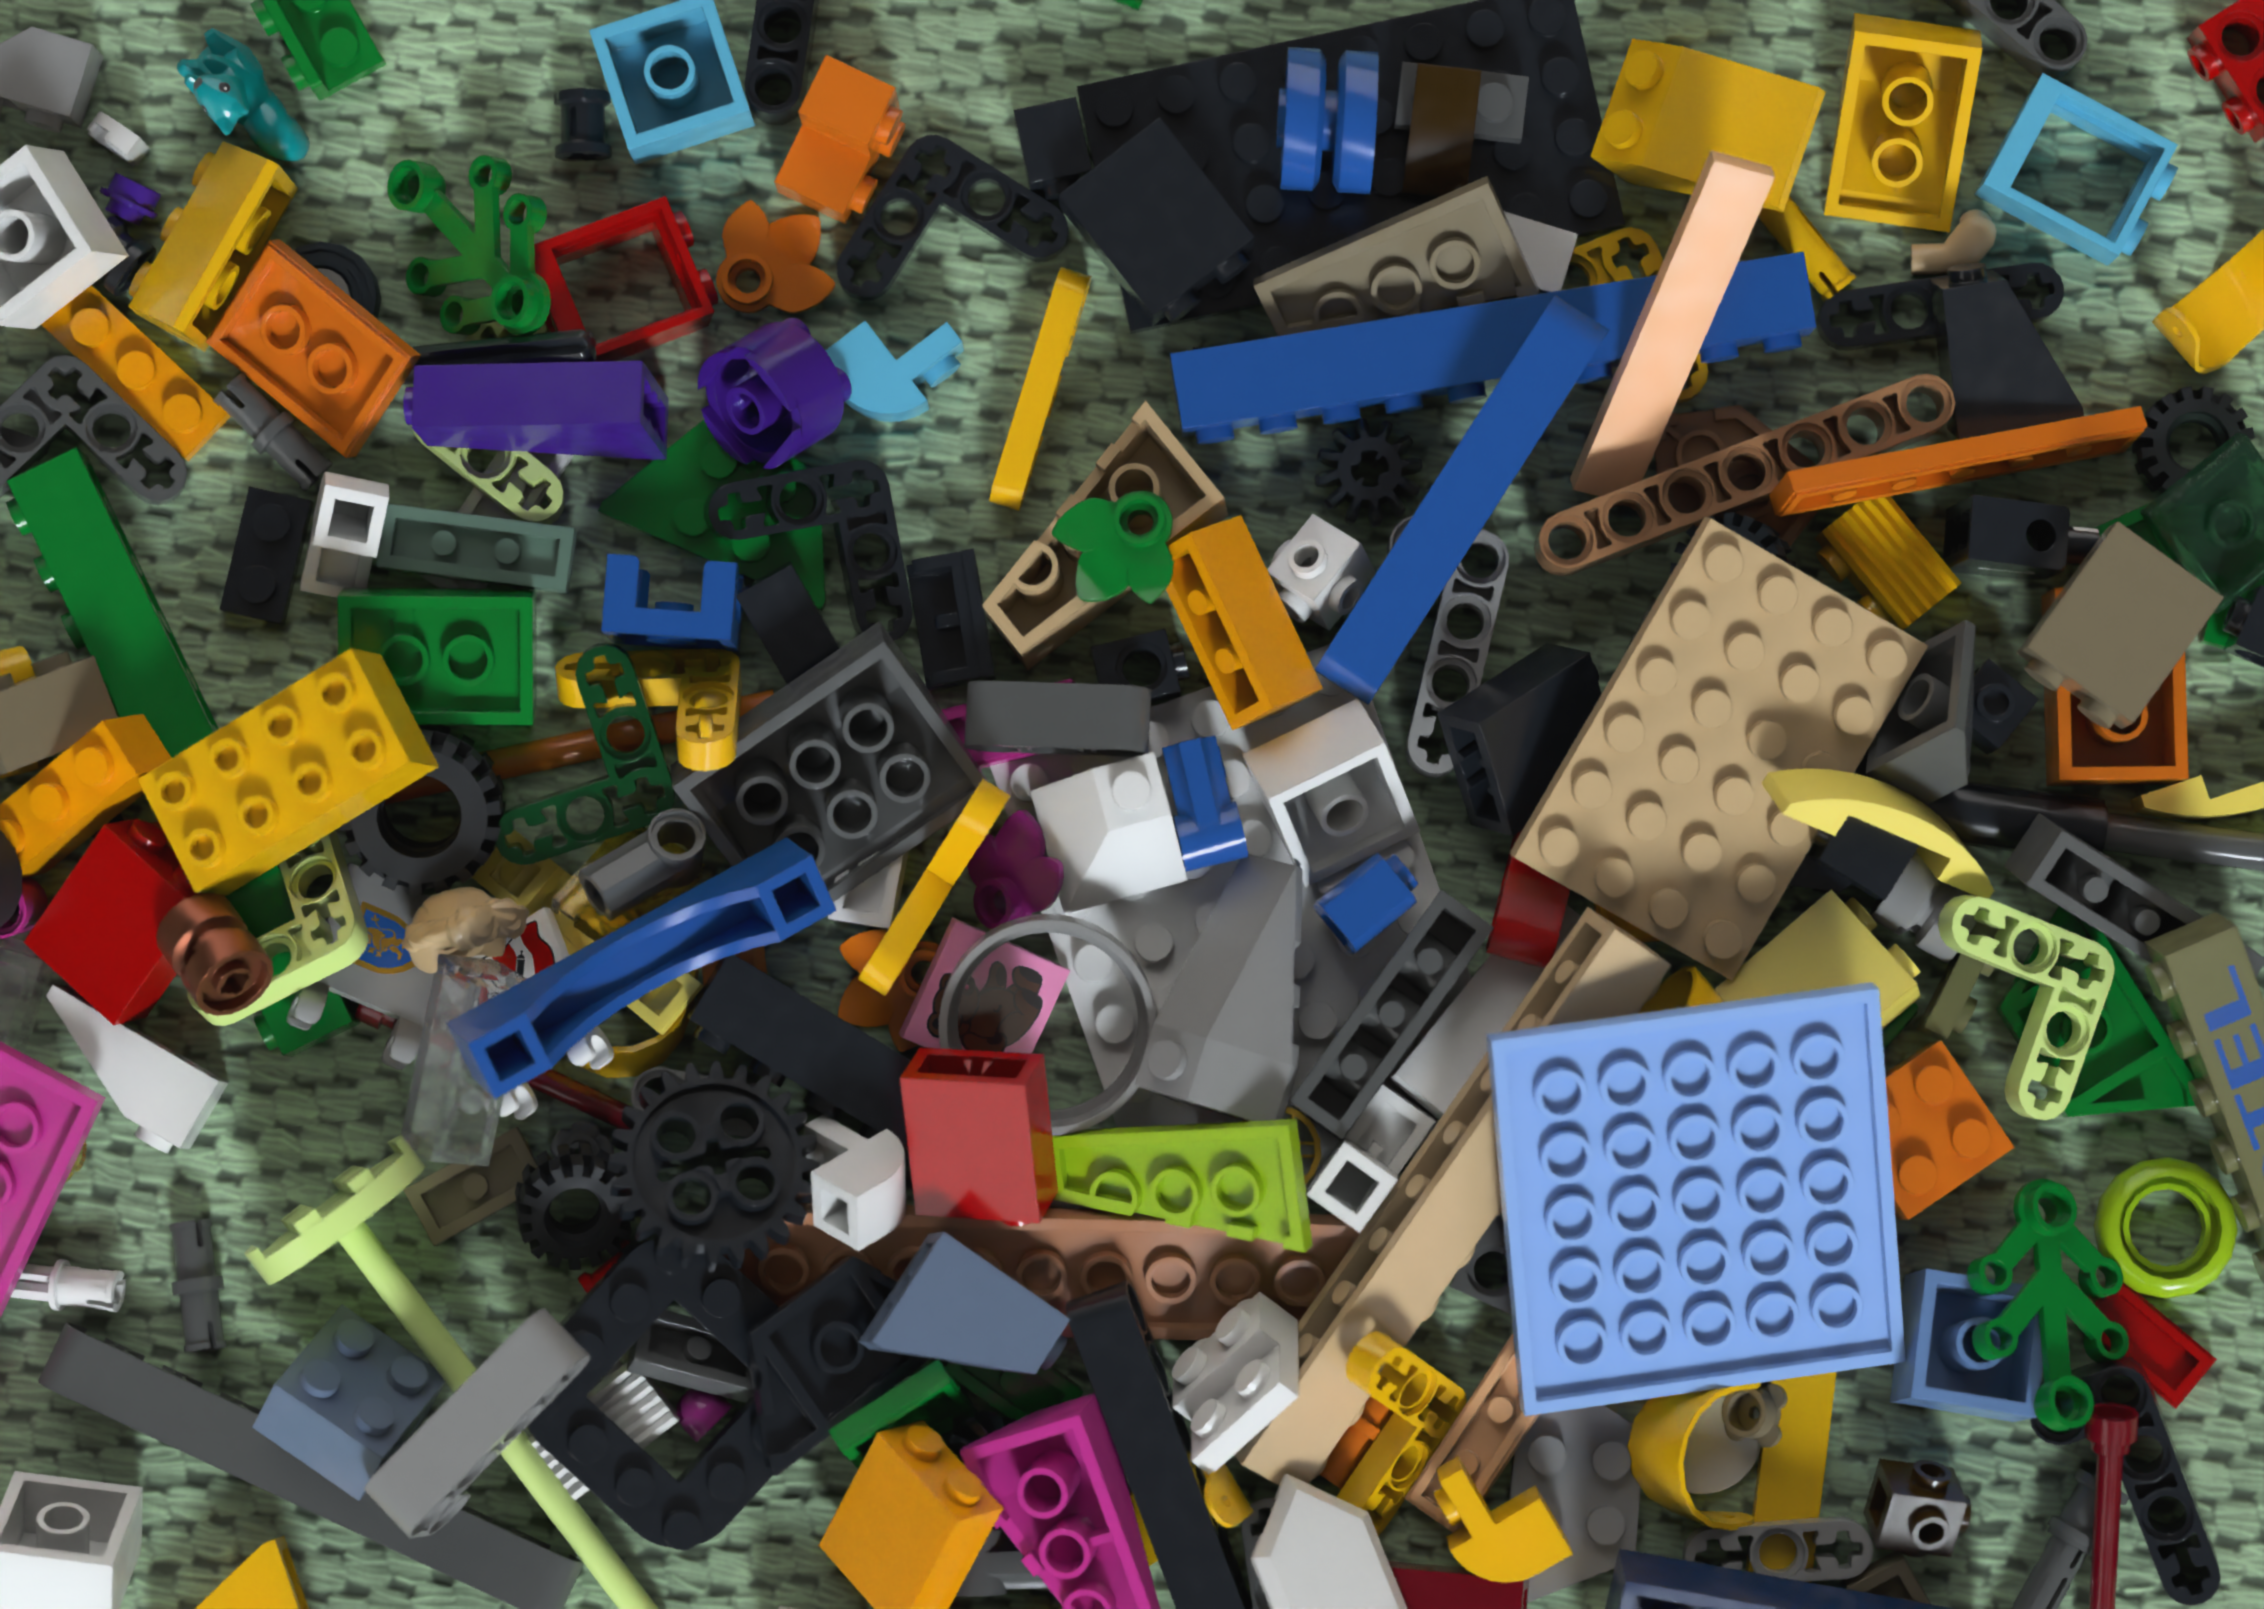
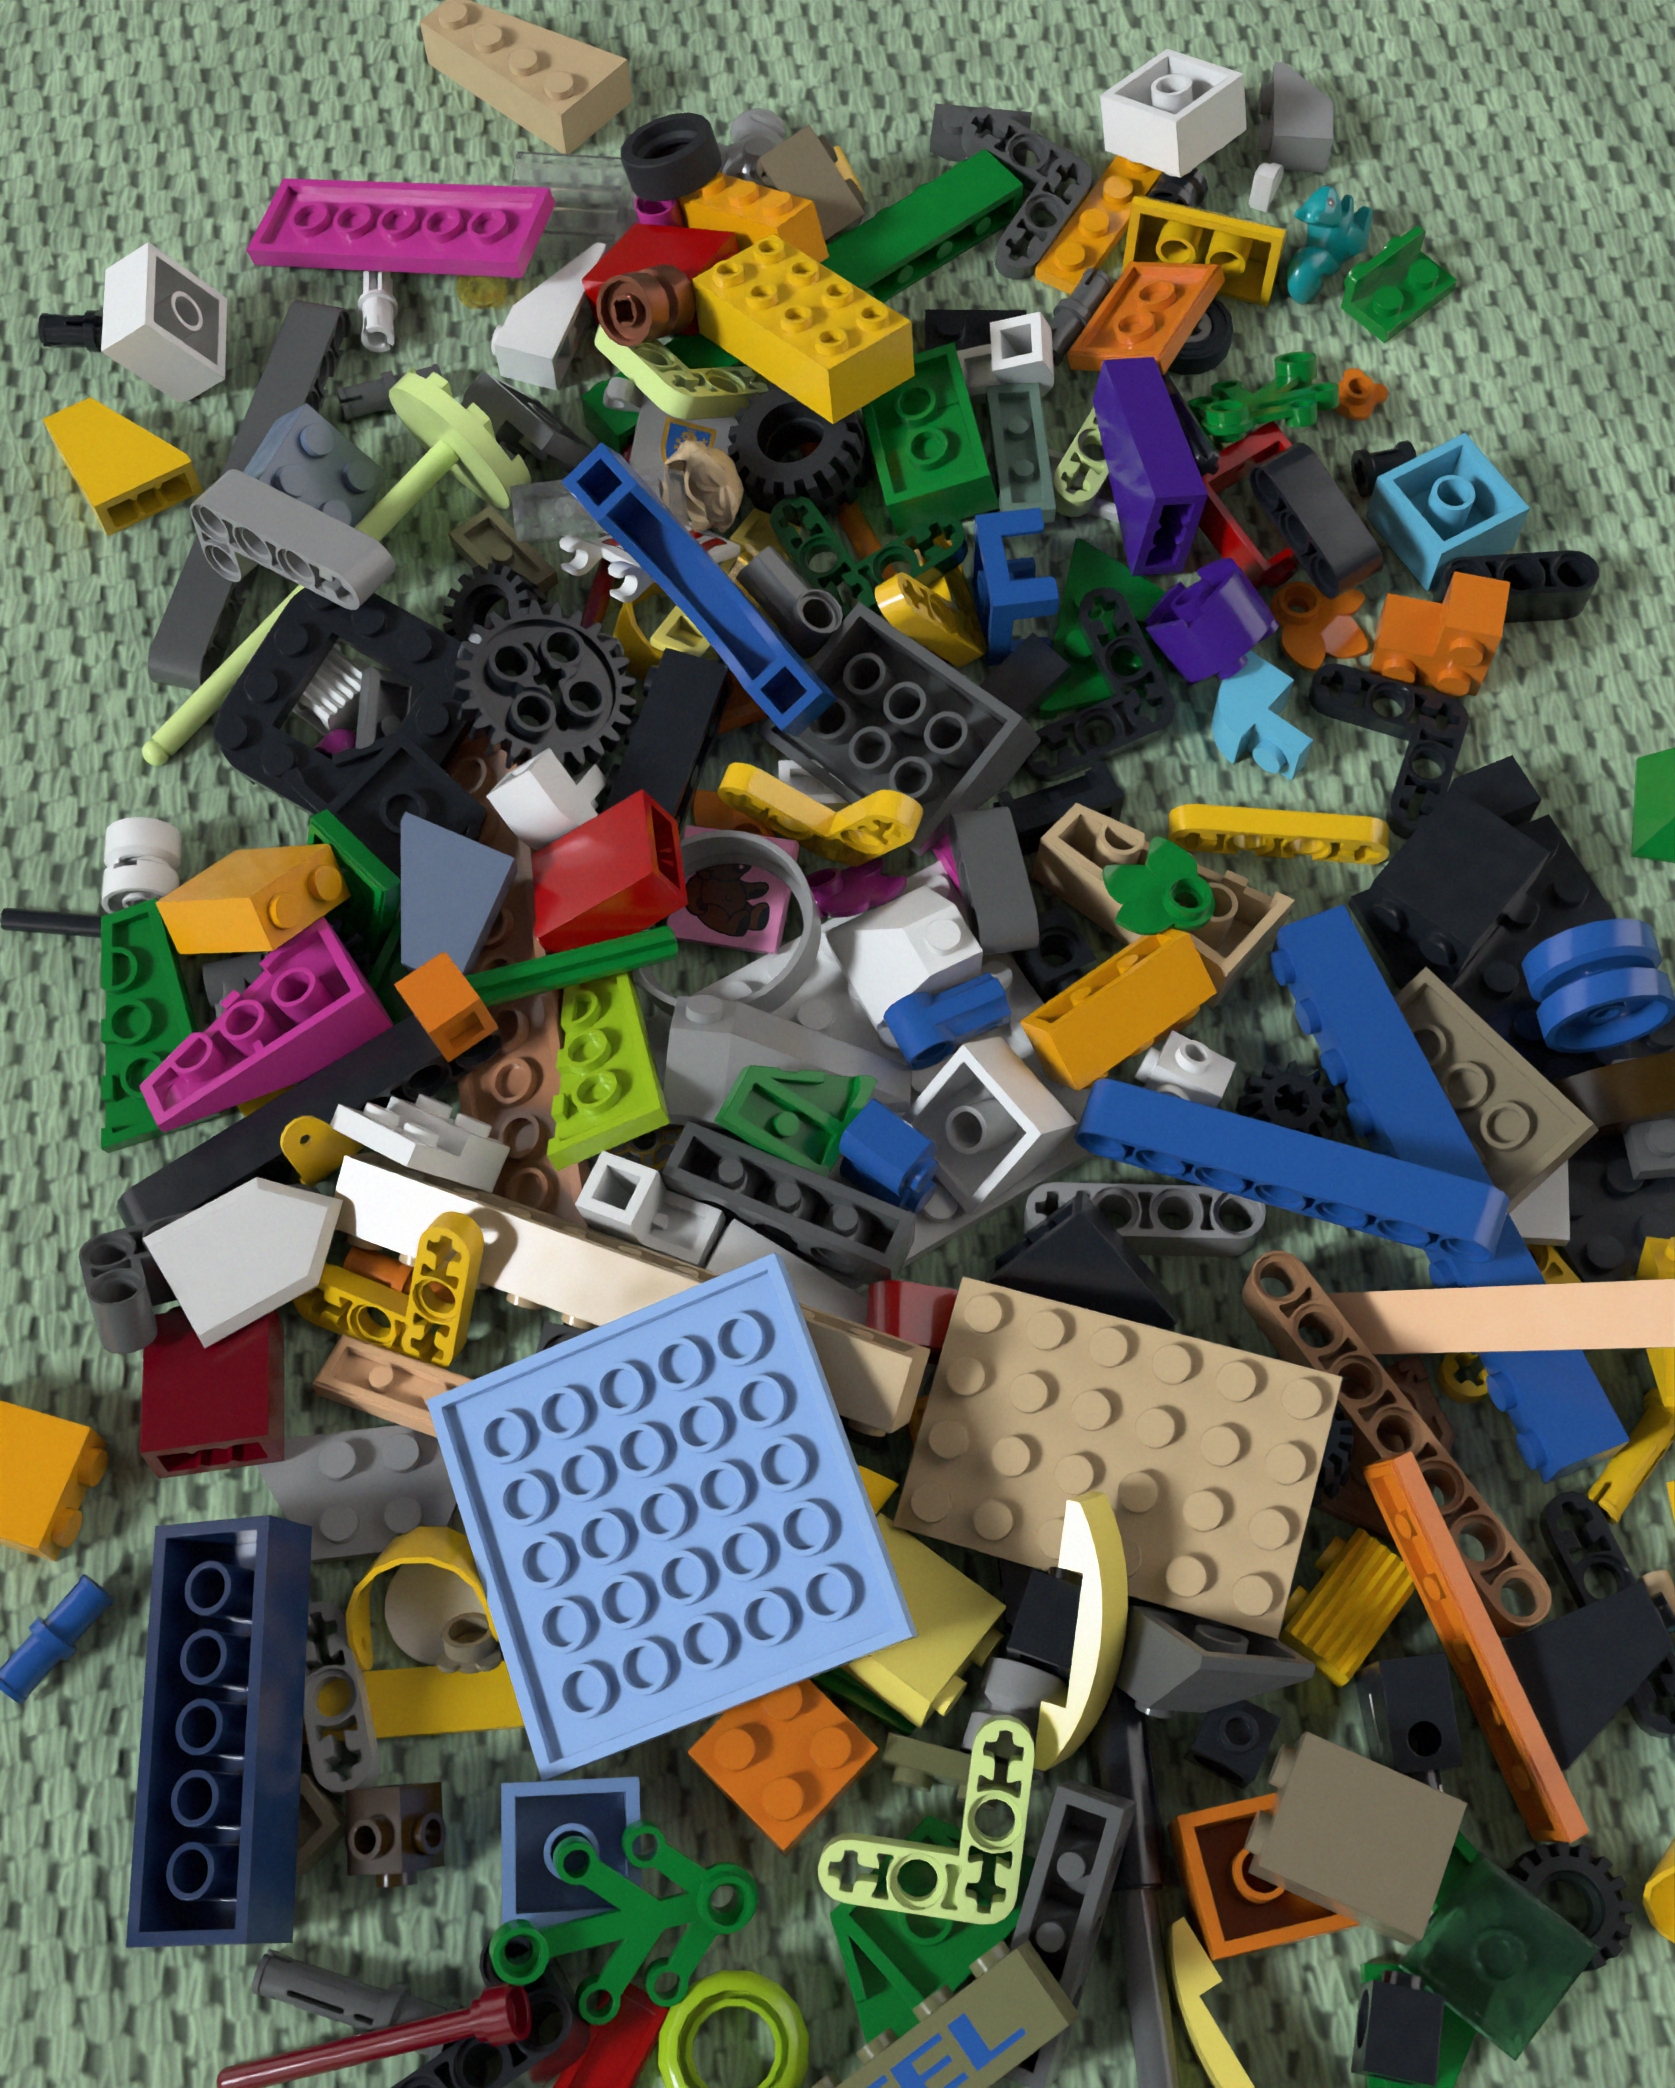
camera: 80 degrees right, 20 degrees down
(130, 199) = (1223, 196): dark purple plate -> none
(311, 1121) = (526, 424): none -> dark grey plate
(482, 125) = (1359, 406): none -> orange plate
(675, 239) = (1316, 520): none -> black beam
(1078, 1203) = (575, 966): none -> green axle
(1107, 1333) = (446, 1006): none -> orange panel
(1306, 986) = (795, 1113): none -> green wing
(1502, 1542) = (304, 1407): yellow brick -> none

